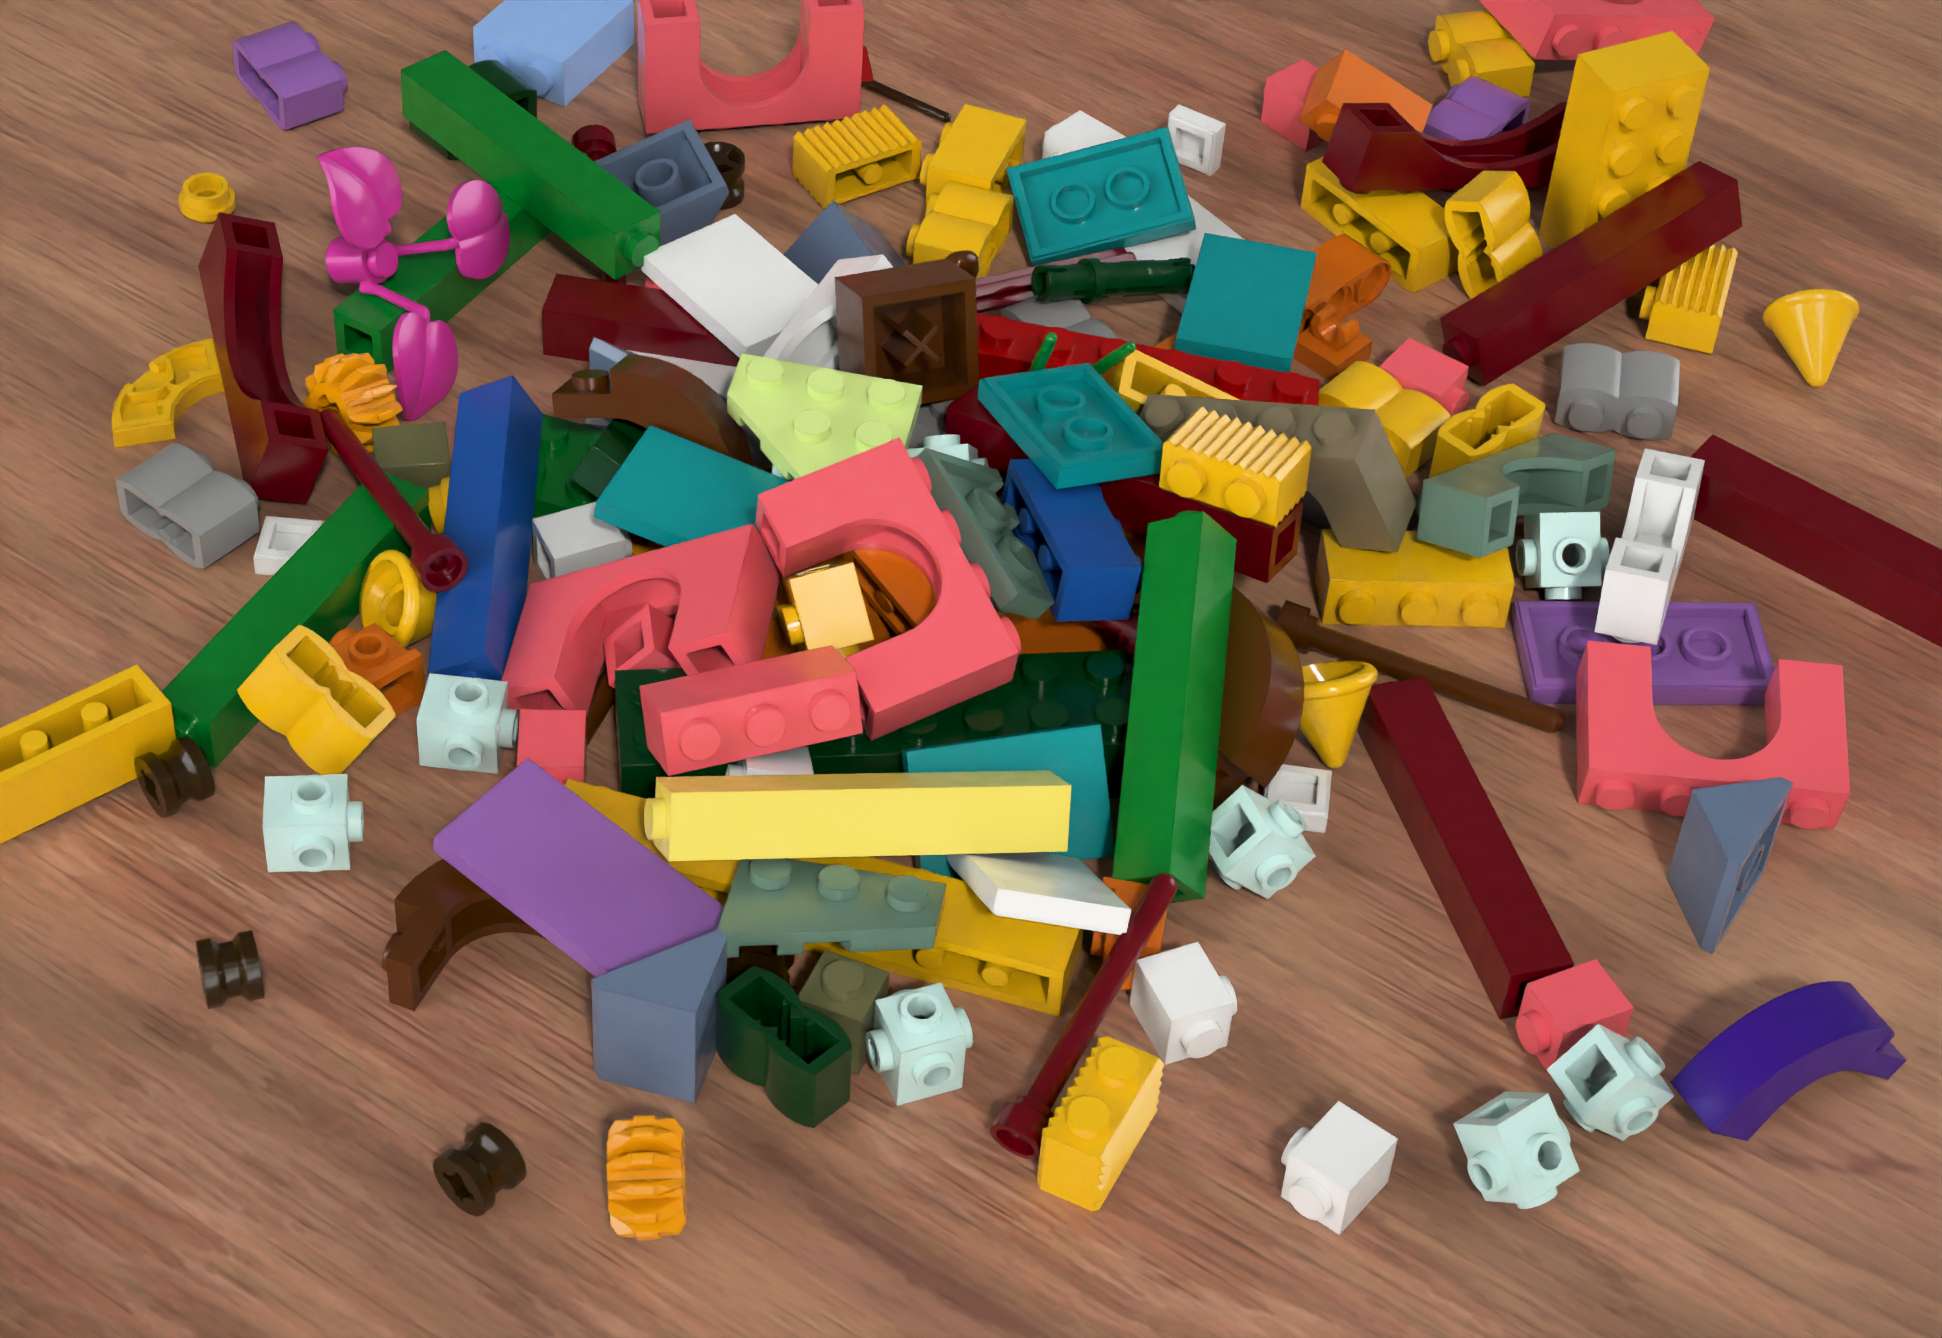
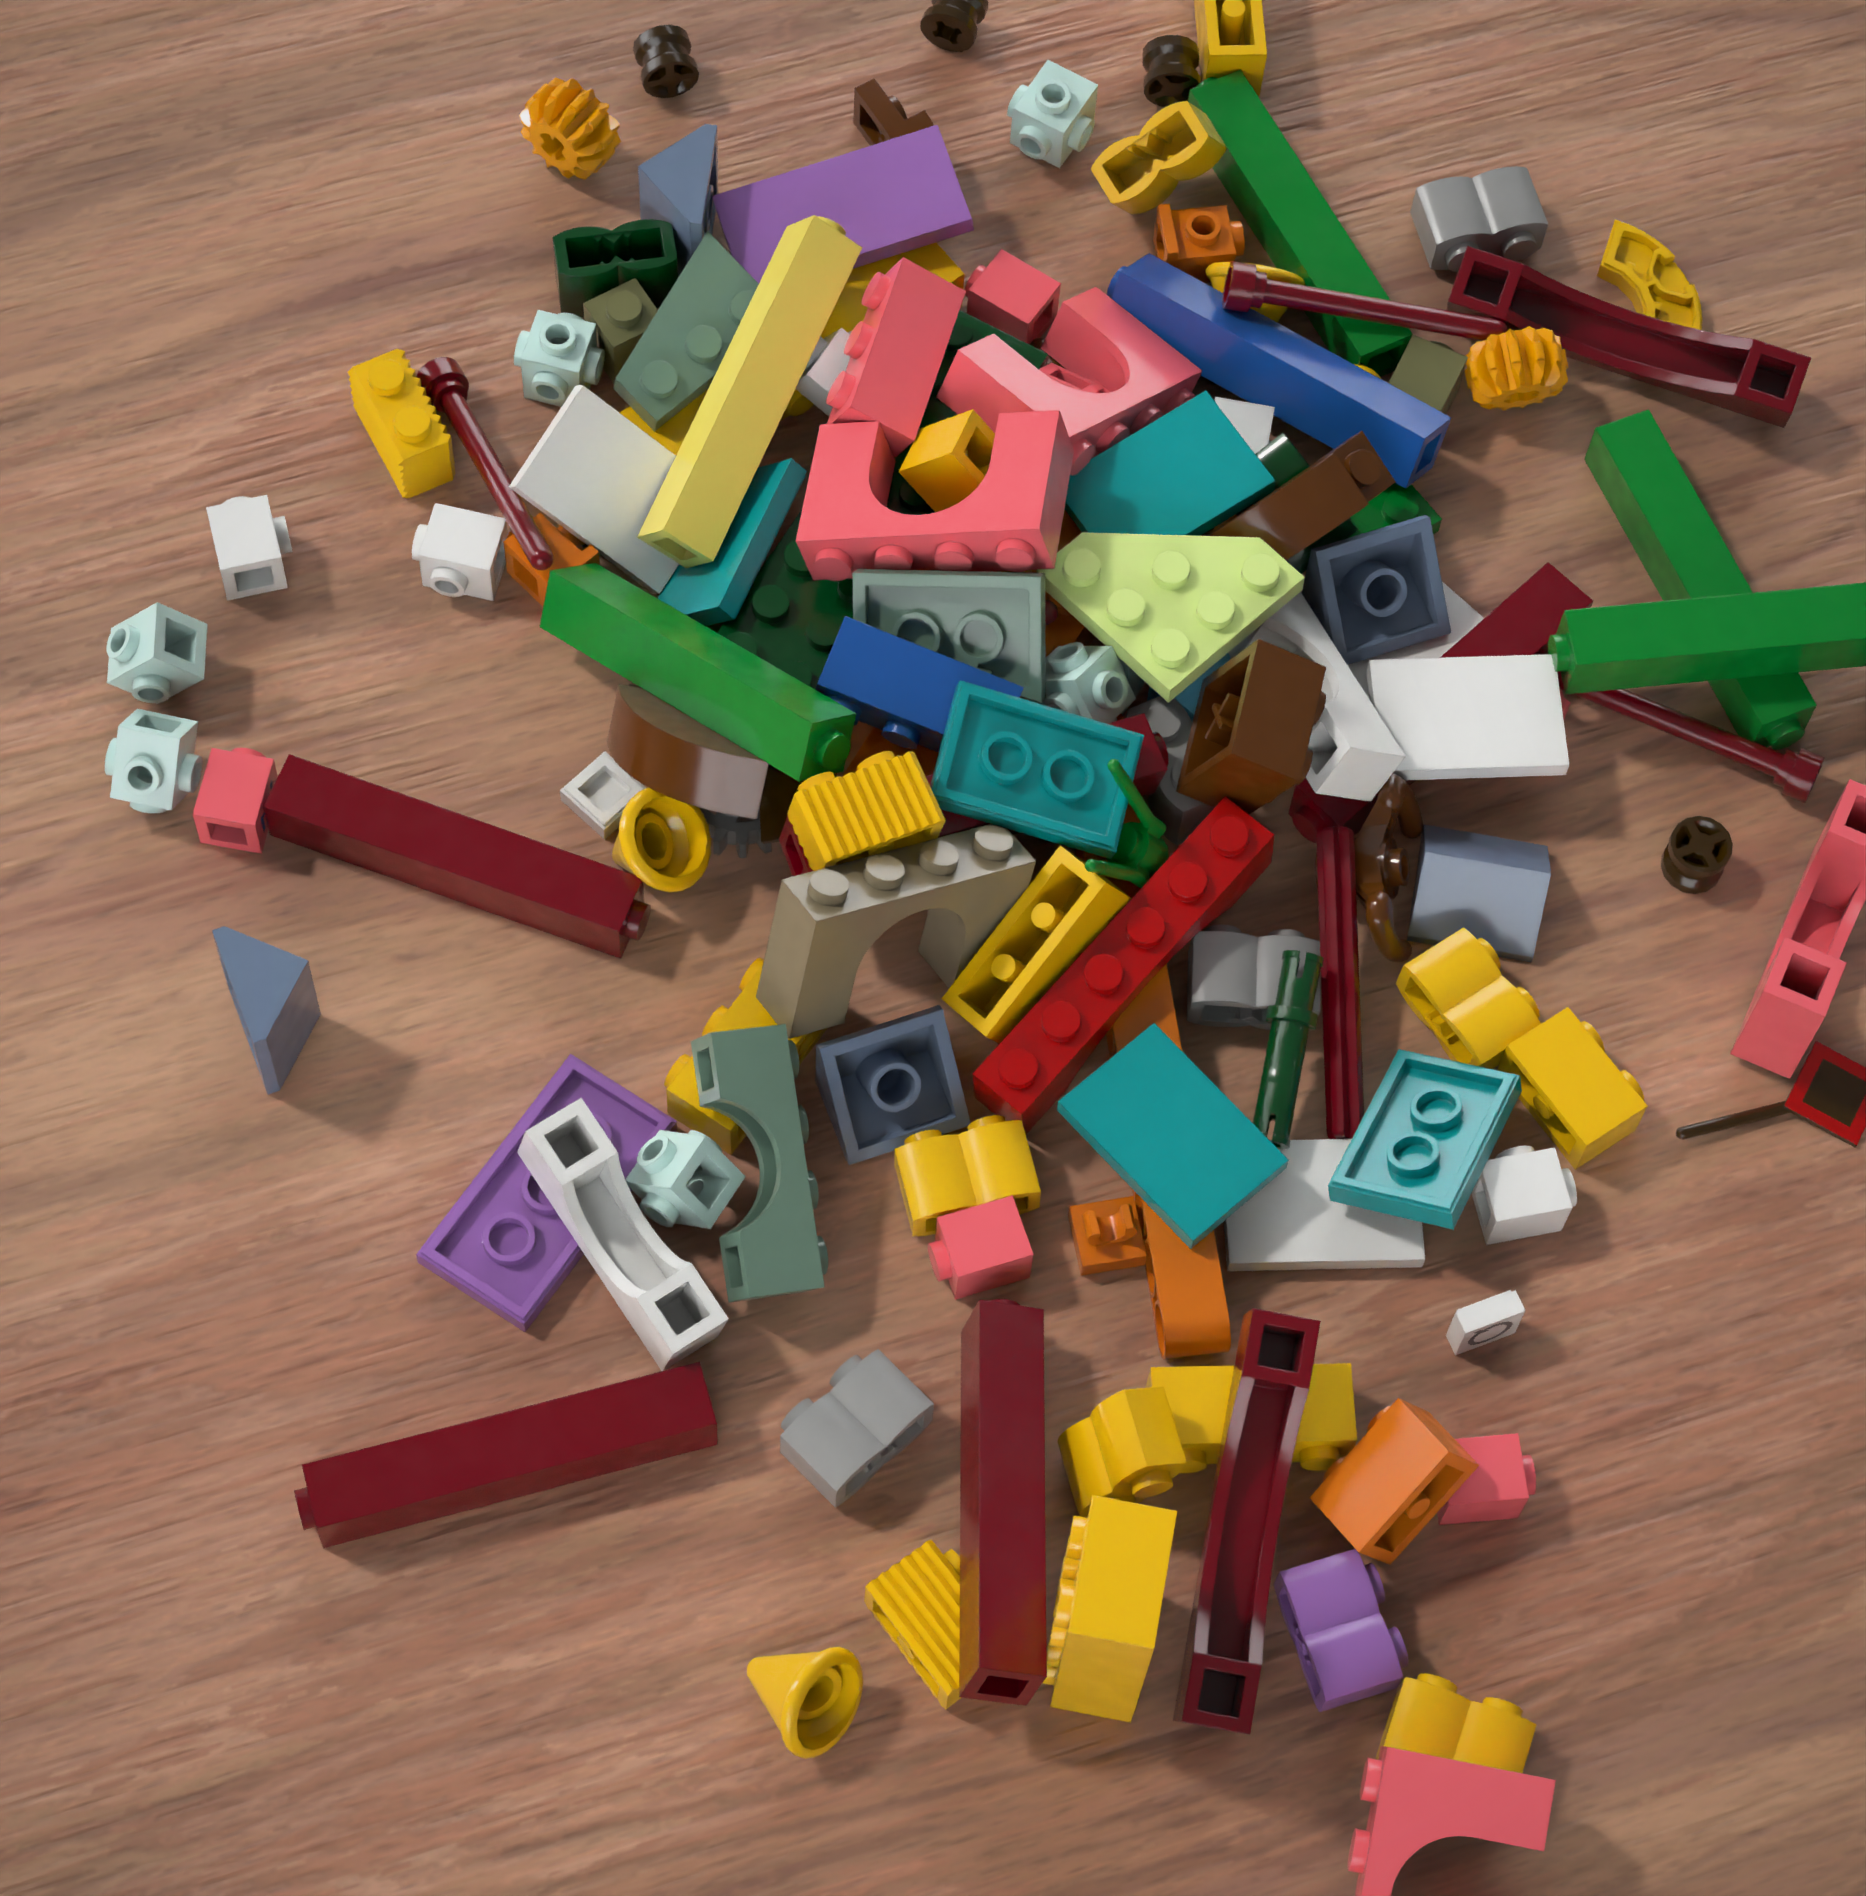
camera: 125 degrees right, 20 degrees up
(280, 540) = (1401, 273): white tile -> none
(363, 199) = (1672, 374): dark pink plant -> none
(465, 723) = (1085, 252): light aqua brick -> none
(673, 176) = (1683, 759): sand blue slope -> none
(856, 156) = (1650, 989): yellow brick -> none
(1258, 842) = (558, 695): light aqua brick -> none
(1308, 634) = (655, 983): reddish brown piece -> none
(1500, 421) = (855, 1223): yellow brick -> none
(1636, 765) = (425, 1046): coral arch -> none
(1780, 1051) = (58, 908): dark purple arch -> none

